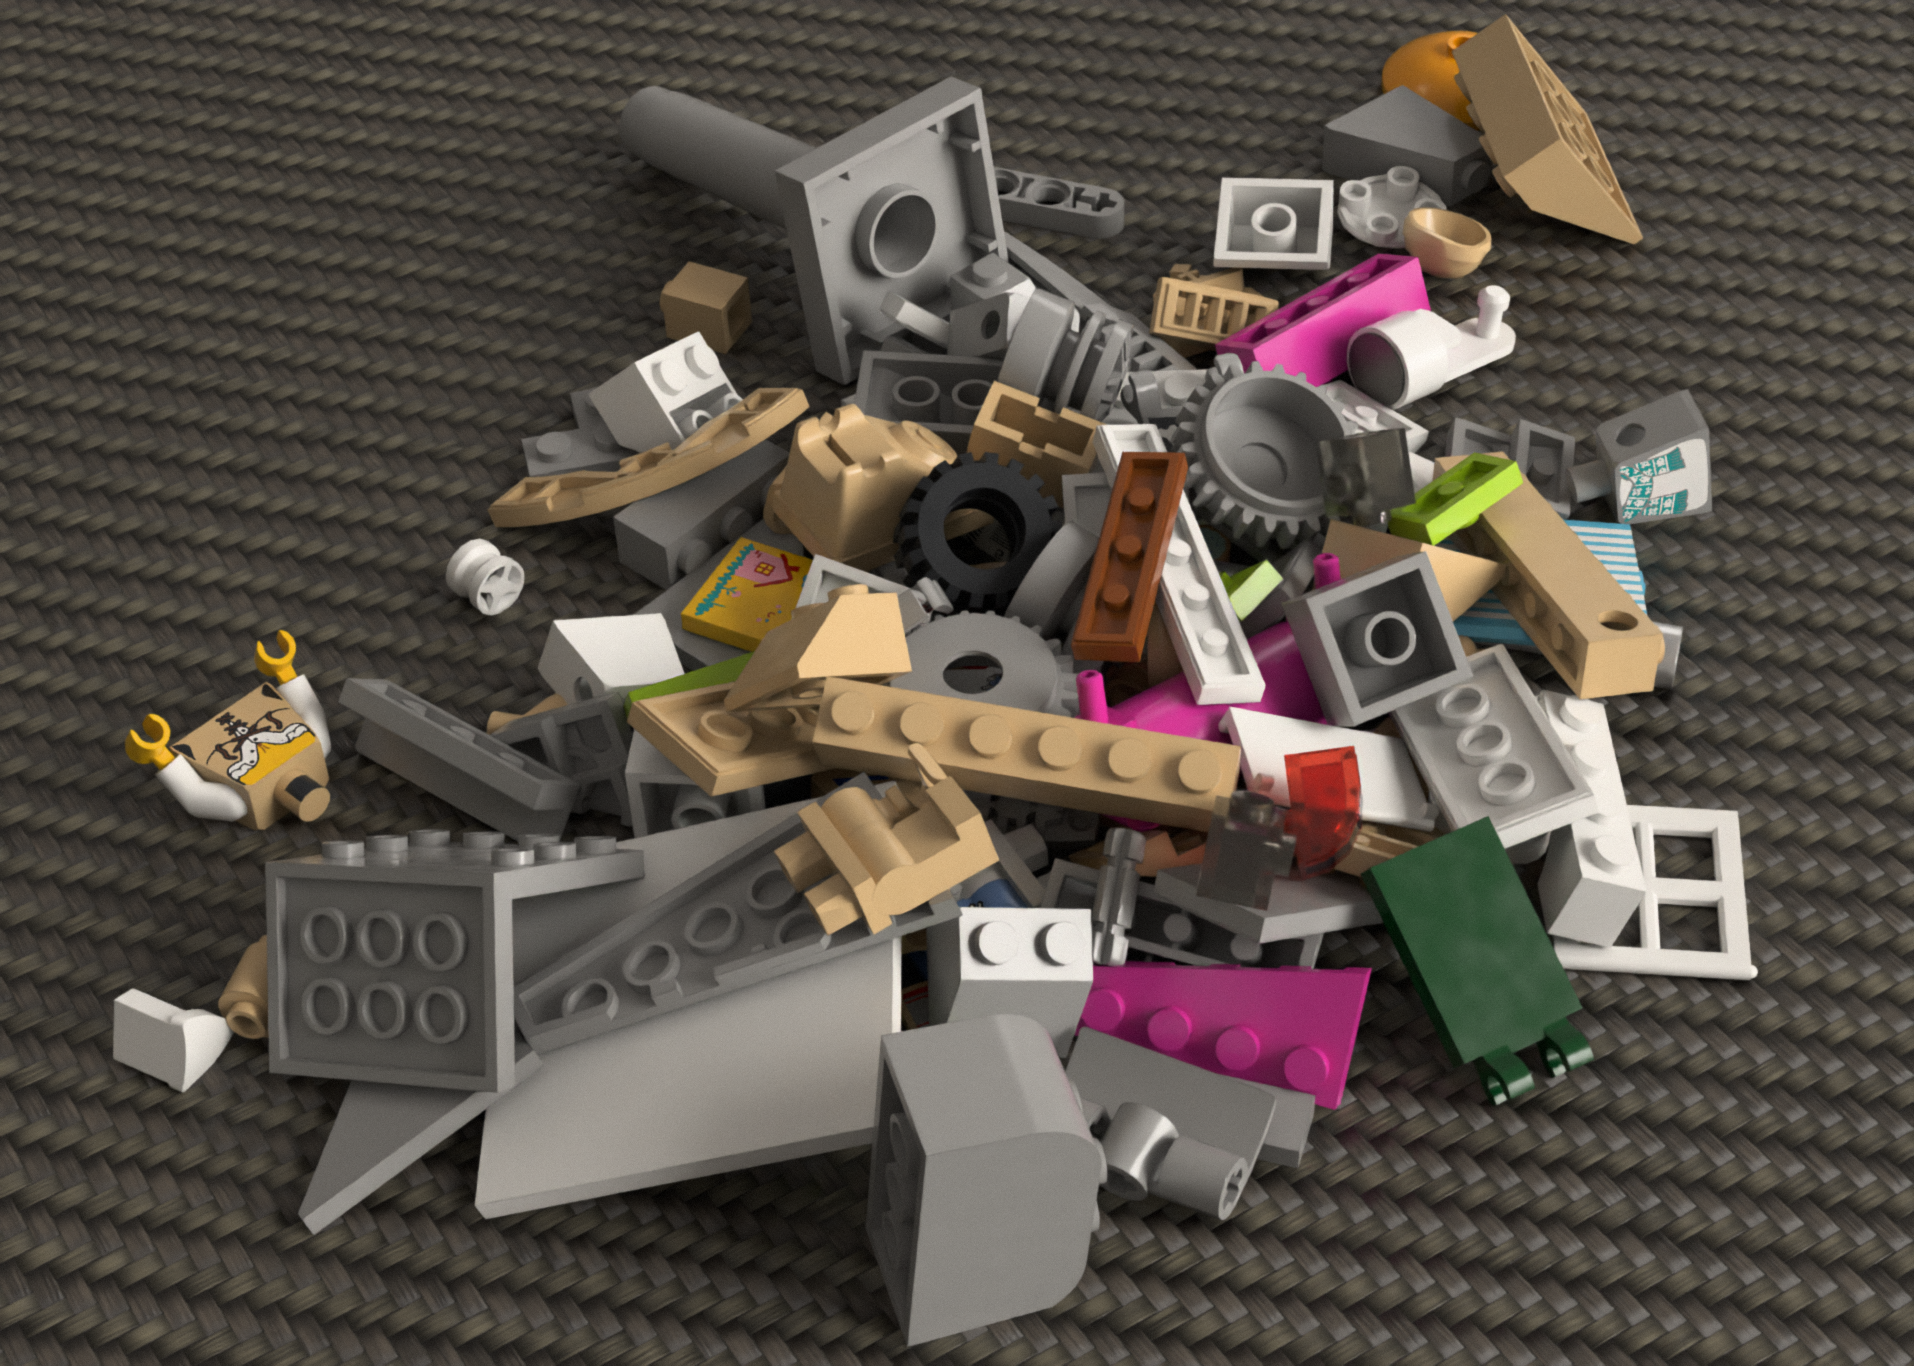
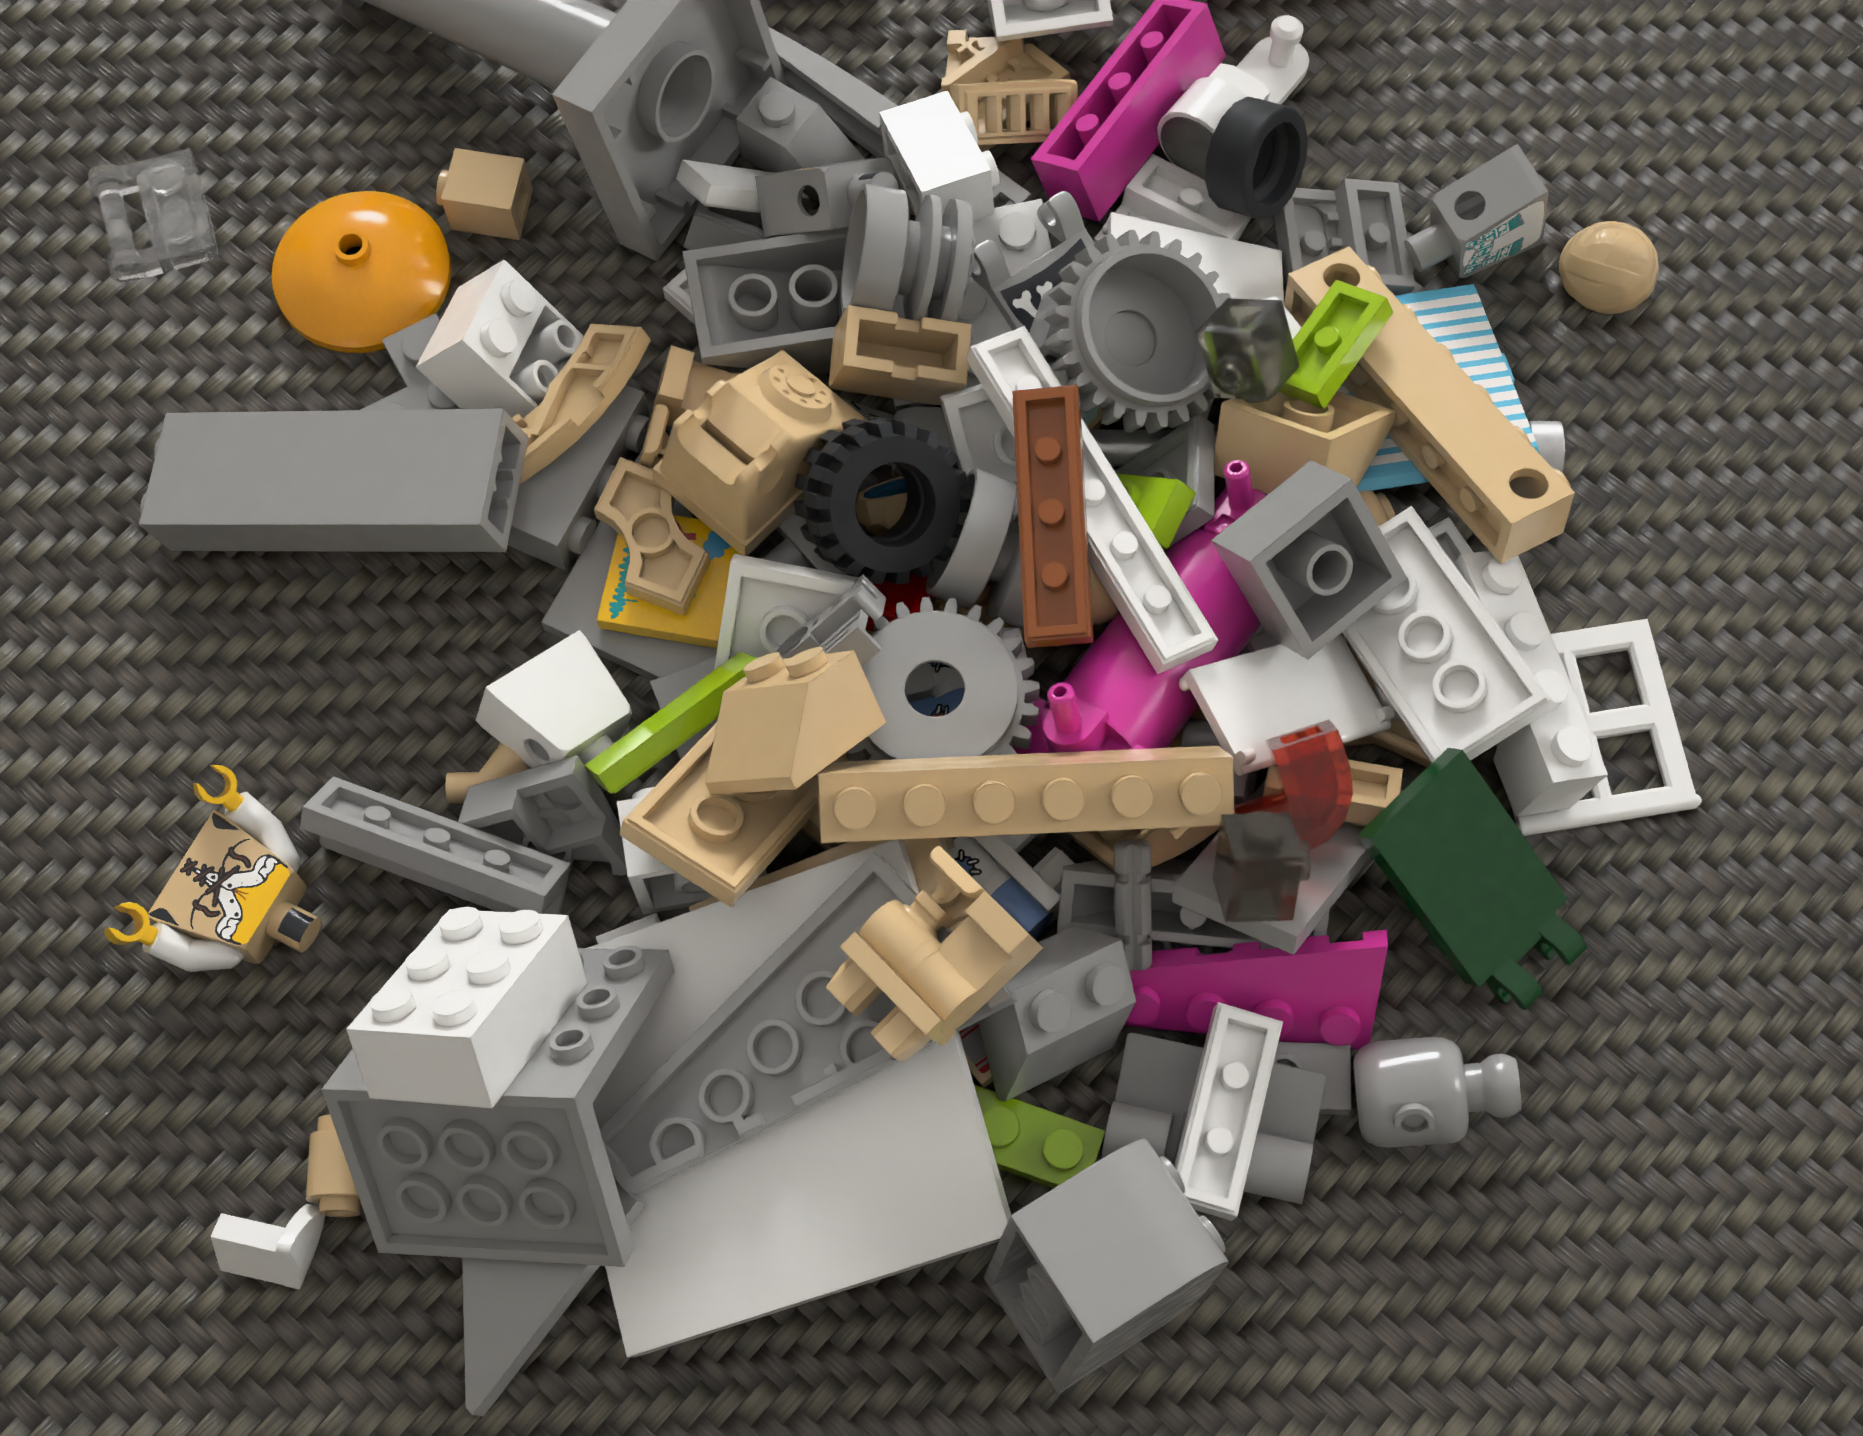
camera: 15 degrees left, 25 degrees up
(424, 287) = (173, 212): none -> clear plate
(425, 813) = (468, 1007): none -> white brick
(483, 462) = (335, 481): none -> light grey brick
(485, 576) = (379, 607): white wheel -> none
(568, 346) = (363, 296): none -> light orange dish
(759, 574) = (663, 562): none -> tan tile
(1134, 300) = (939, 154): none -> white brick
(1161, 1093) = (1226, 1109): none -> white tile
(1379, 1144) = (1423, 1091): none -> light grey piece
(1400, 370) = (1232, 153): none -> black tyre
(1773, 532) = (1609, 267): none -> tan piece

